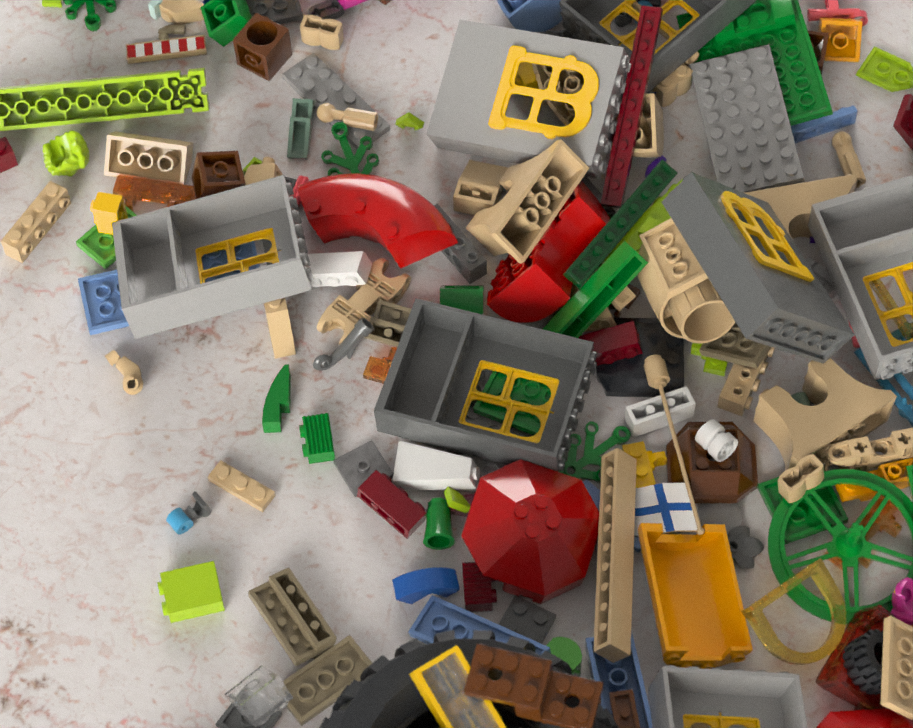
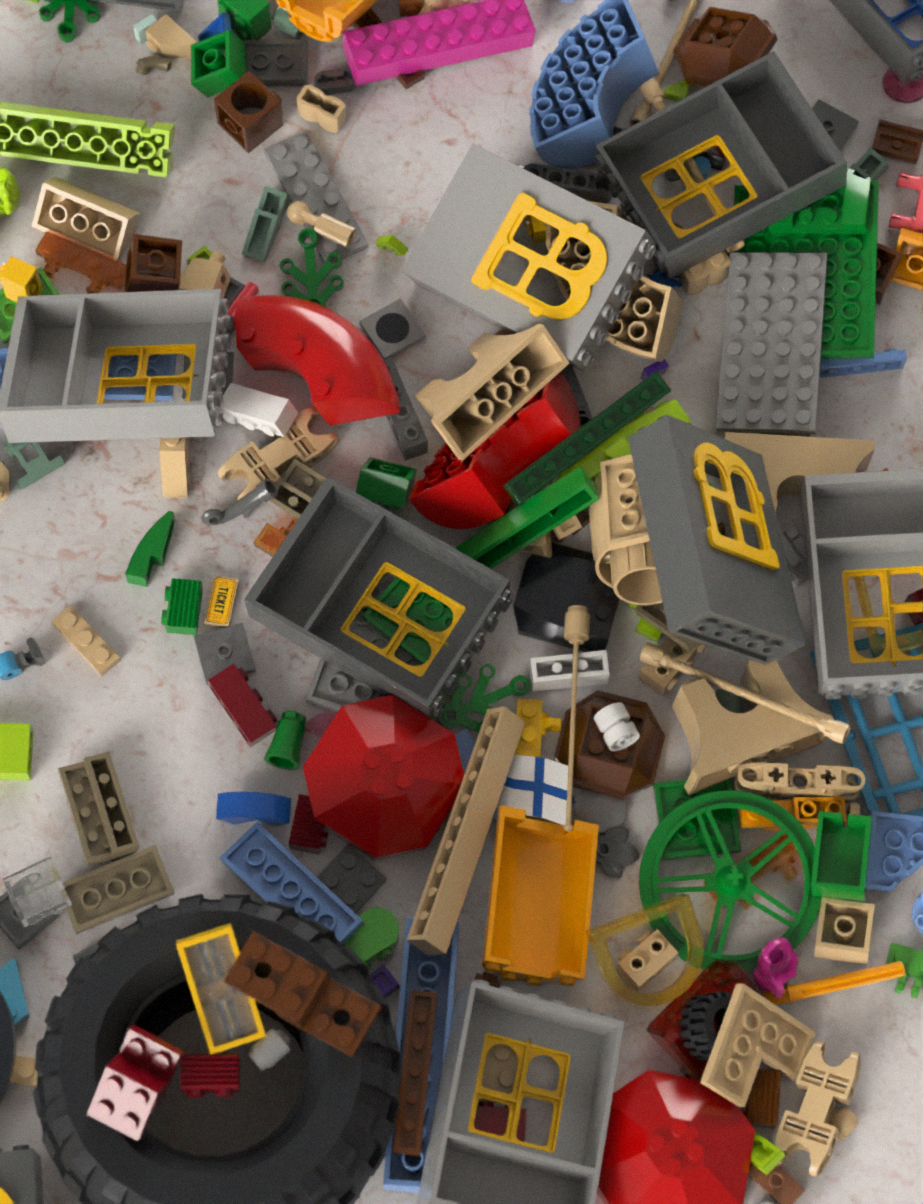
camera: 10 degrees right, 10 degrees up
(161, 358) = (35, 468): none -> sand green tile
(166, 49) = (141, 85): tile -> none
(348, 428) = (221, 602): none -> tile
(431, 469) = (295, 676): white slope -> none
(432, 183) = (392, 329): none -> light grey tile
(456, 500) = (313, 719): lime tile -> none
(478, 187) = (444, 346): tan slope -> none
(615, 343) = (537, 577): dark red brick -> none
(631, 107) = (641, 297): dark red plate -> none
(799, 624) = (646, 960): none -> tan brick
(803, 477) = (690, 797): tan brick -> none
(847, 157) = (879, 413): tan piece -> none
(897, 396) = (834, 729): none -> tan hose

